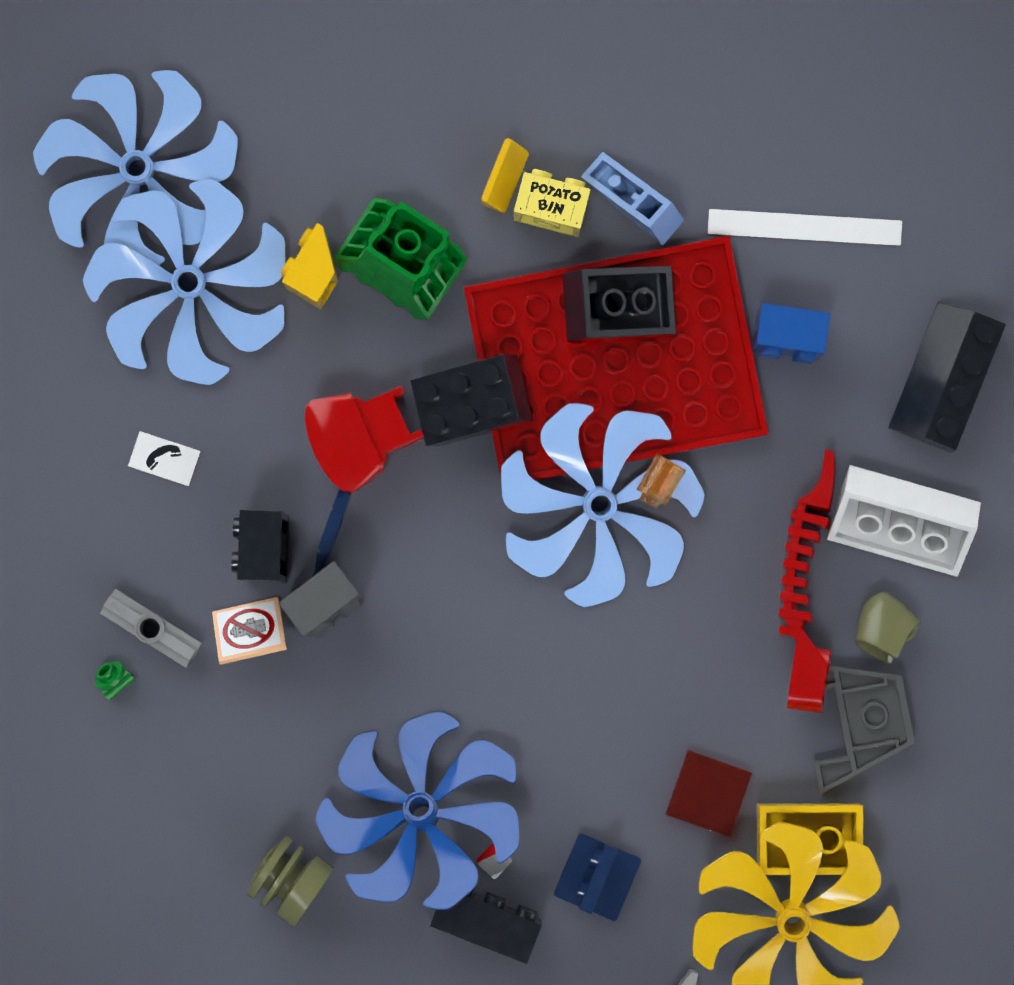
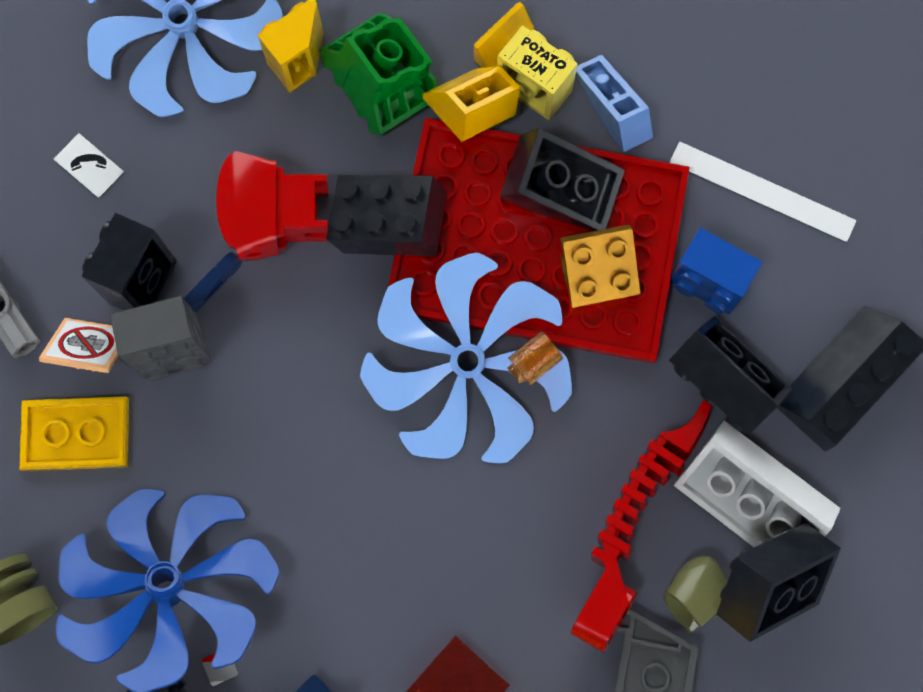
camera: 20 degrees right, 10 degrees down
(272, 713) = (74, 433): none -> yellow tile
(503, 254) = (475, 100): none -> yellow slope
(685, 371) = (600, 265): none -> plate
(840, 423) = (730, 375): none -> black brick
(947, 593) = (777, 581): none -> black brick

